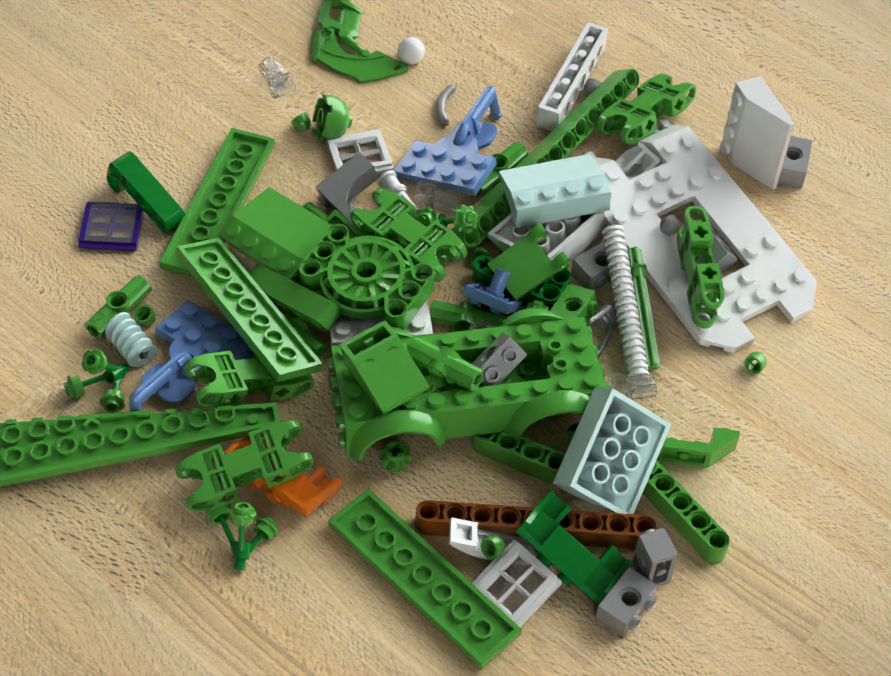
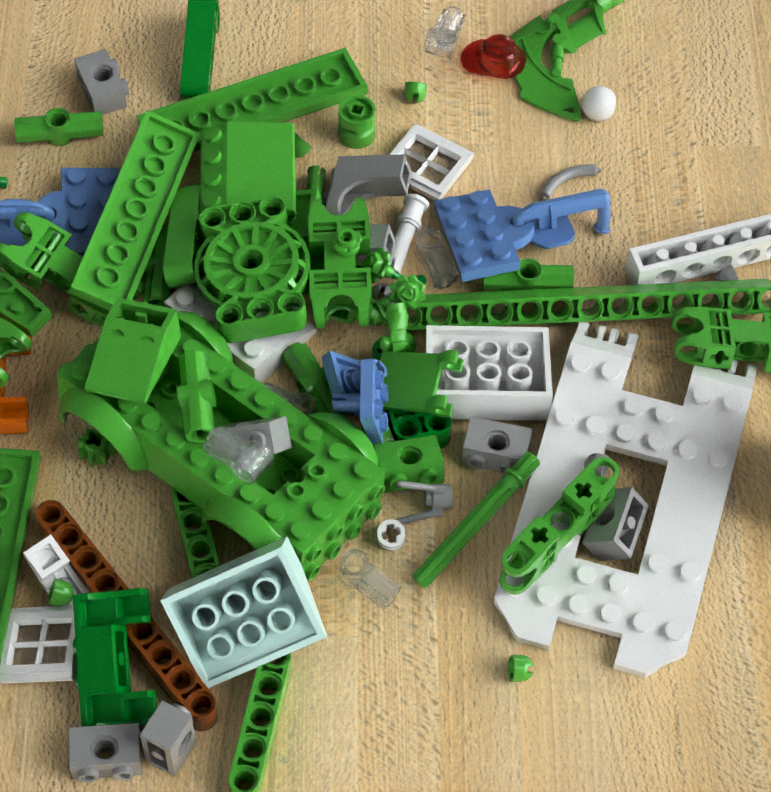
camera: 50 degrees right, 5 degrees up
(108, 262) = (101, 82): none -> light grey brick
(111, 226) = (147, 55): clear piece -> none
(130, 340) = (30, 161): light aqua piece -> none
(145, 315) = (70, 152): bright green hinge -> none
(296, 161) = (356, 121): none -> bright green wheel
(319, 70) = (494, 57): none -> clear red piece
(331, 118) = (438, 108): bright green cylinder -> none
(407, 220) = (347, 248): none -> bright green plate
(481, 244) = (397, 324): none -> bright green arm
(520, 368) = (244, 458): none -> clear piece
(526, 288) = (367, 402): none -> medium blue plate
(555, 190) = (526, 336): light aqua slope -> none
(616, 356) = (391, 523): none -> white bush
(625, 301) = (461, 497): white piece -> none
(637, 161) = (661, 382): white slope -> none
(698, 453) = (373, 705): bright green slope -> none

